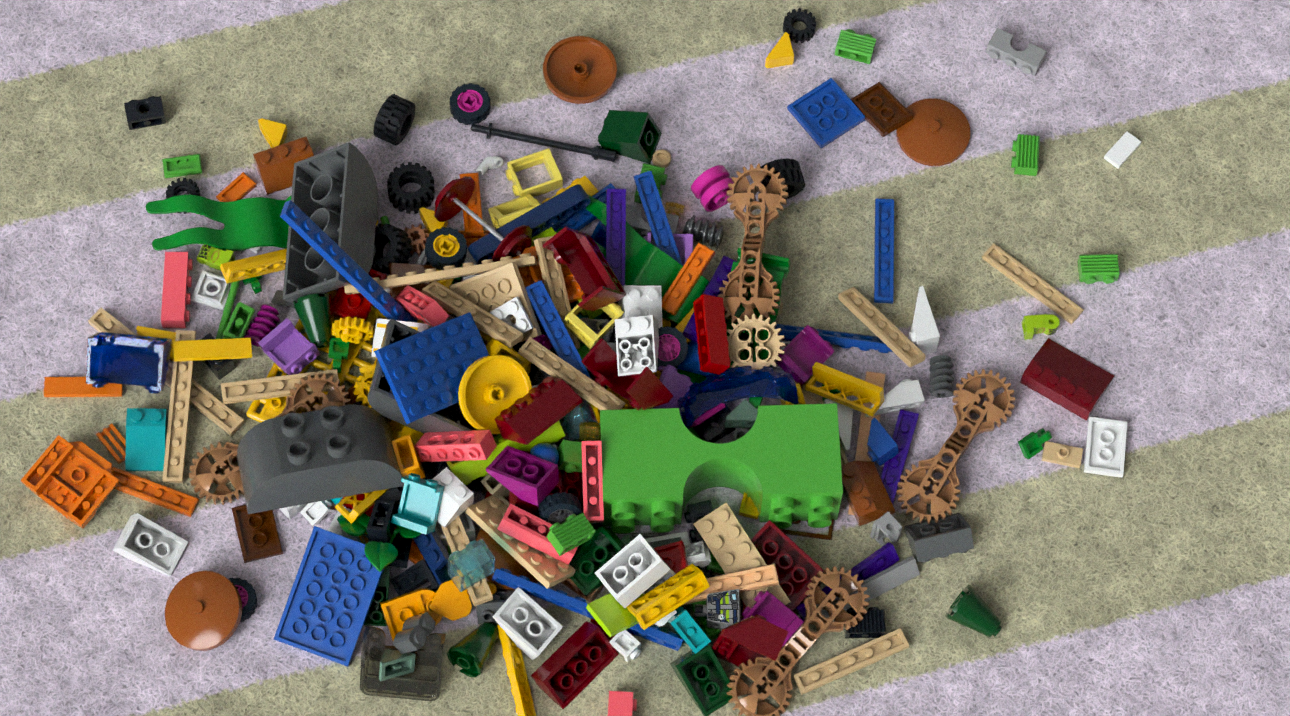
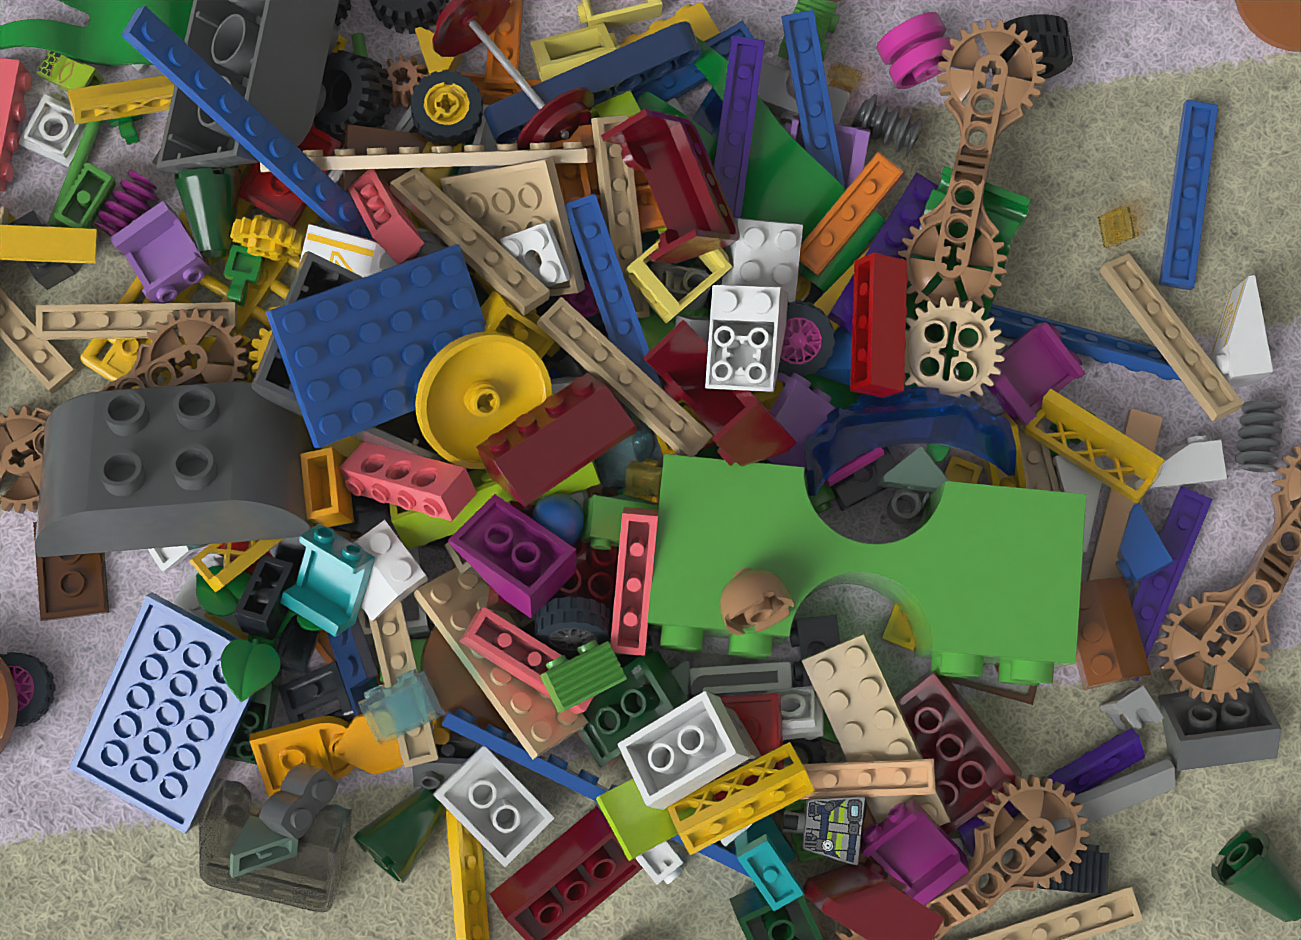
camera: 10 degrees right, 15 degrees up
(661, 477) = (753, 600): none -> medium nougat cylinder
(844, 273) = (1117, 227): none -> clear yellow tile

